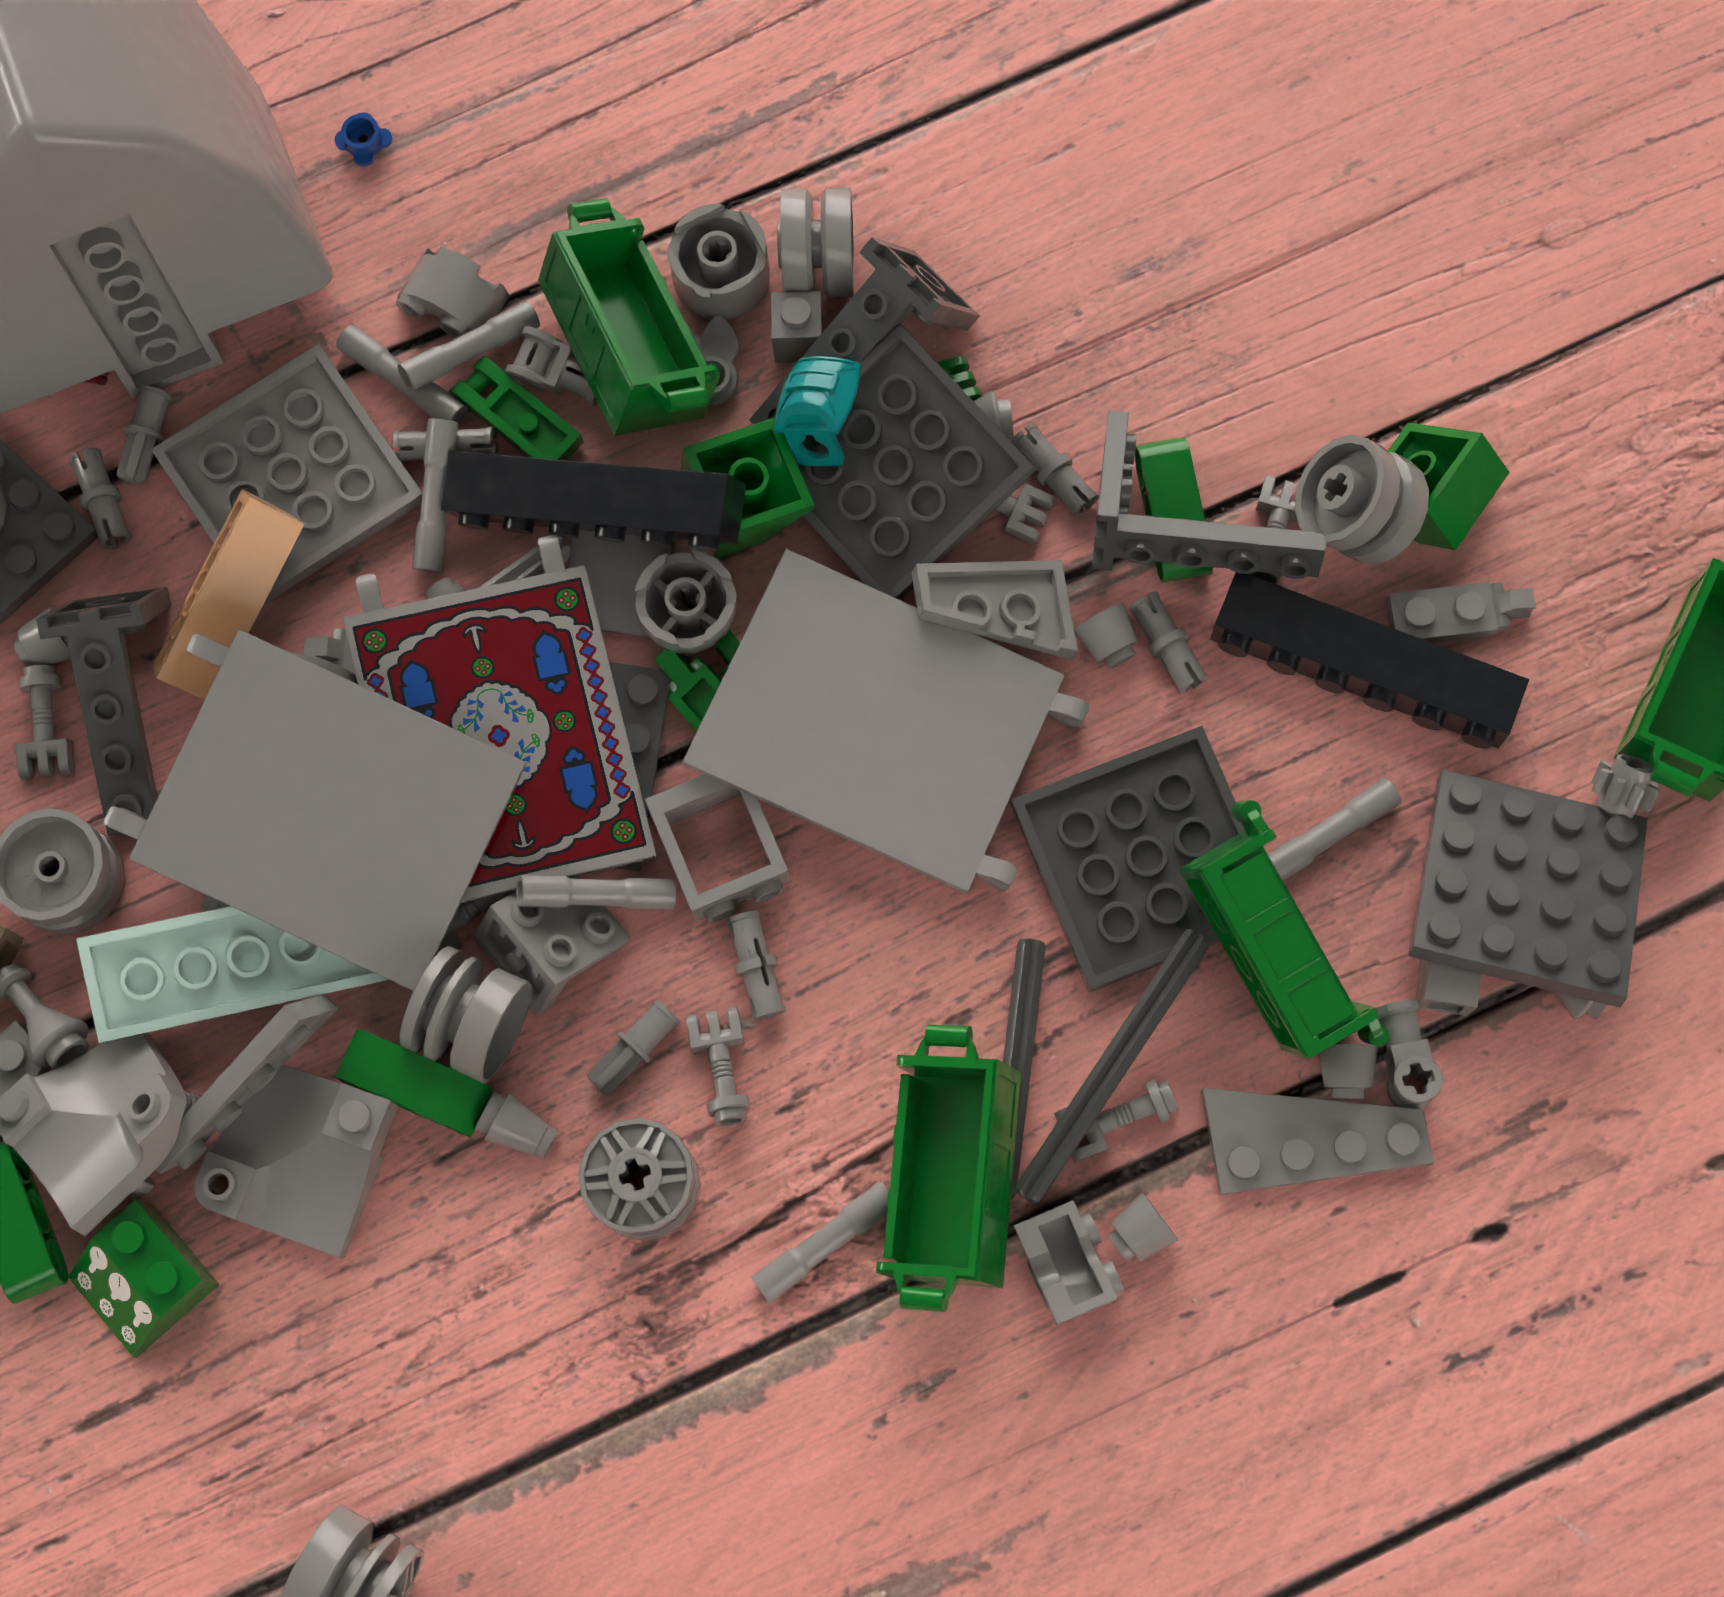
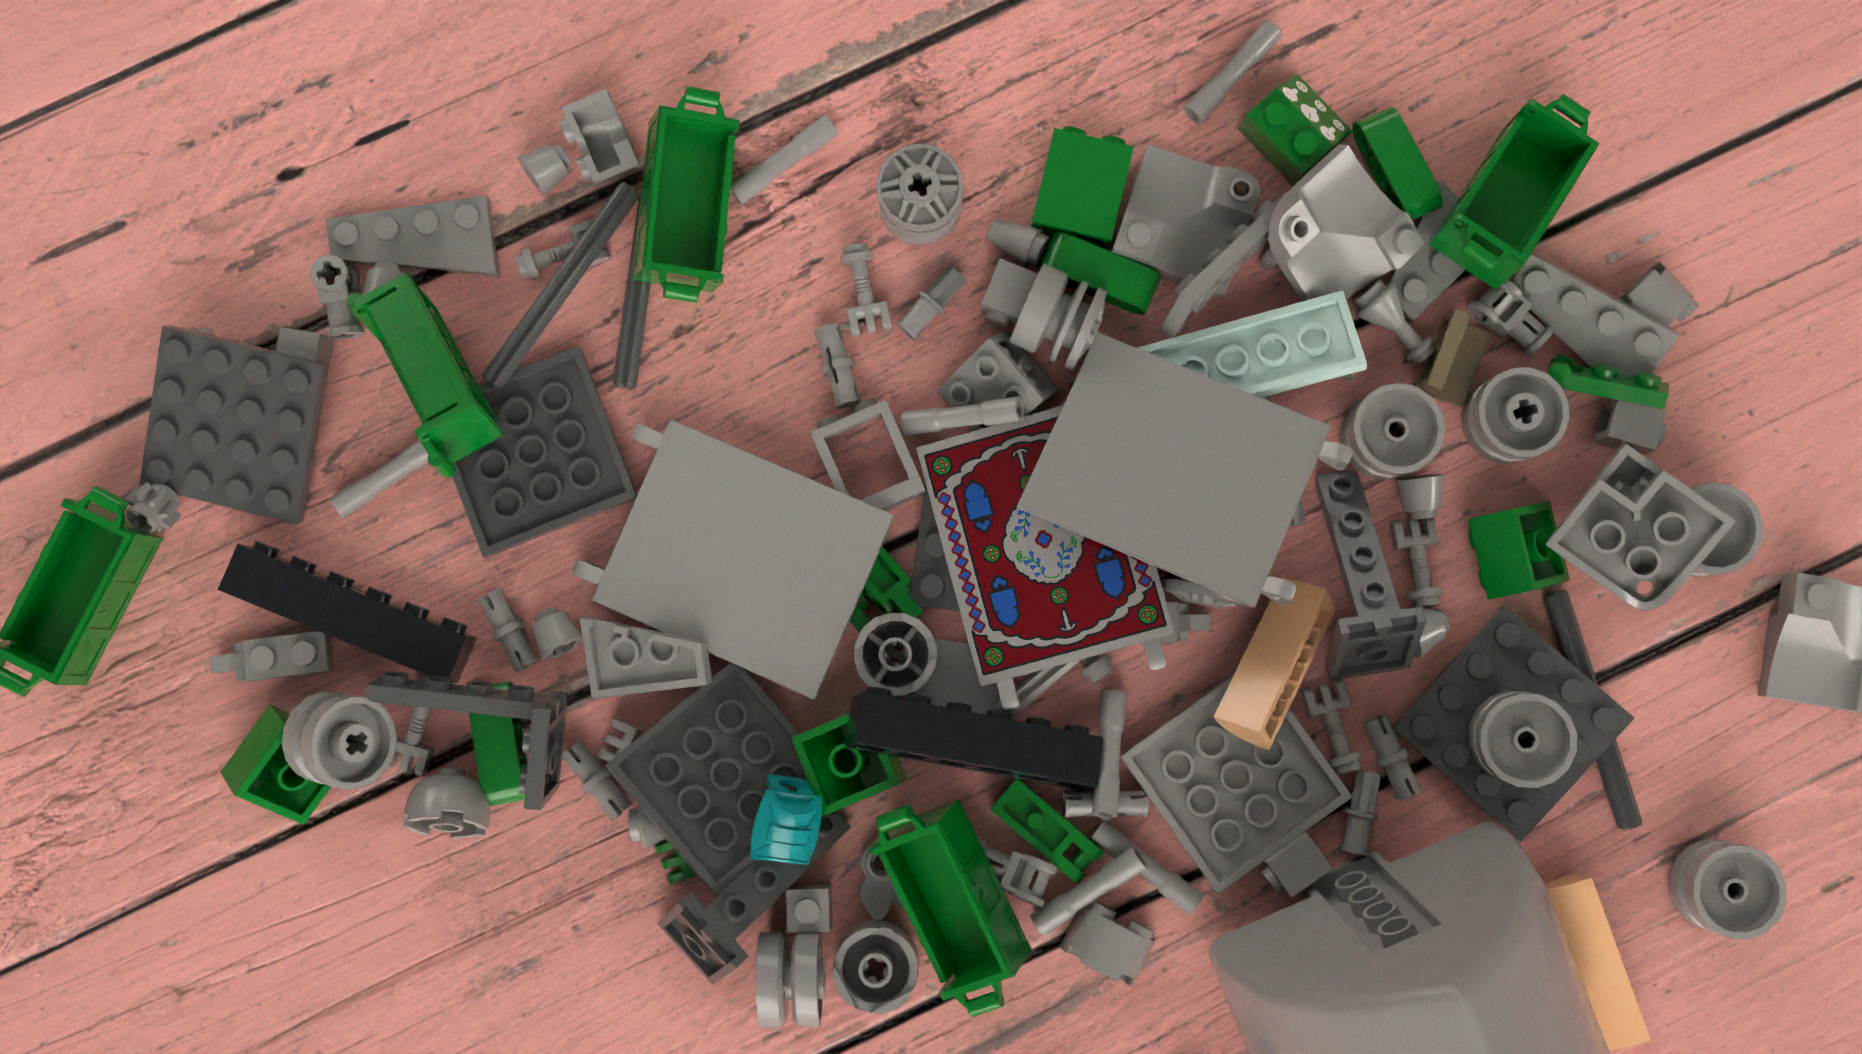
camera: 175 degrees right, 10 degrees up
(28, 792) = (1421, 495): none -> light grey hat
(156, 492) = (1328, 707): none -> light grey hinge
(195, 1383) = (1249, 53): none -> light grey piece
(224, 371) = (1295, 866): none -> light grey brick
(429, 1196) = (1082, 185): none -> green brick
(533, 1054) = (1007, 293): none -> light grey brick
(1229, 436) = (448, 805): none -> light grey cylinder

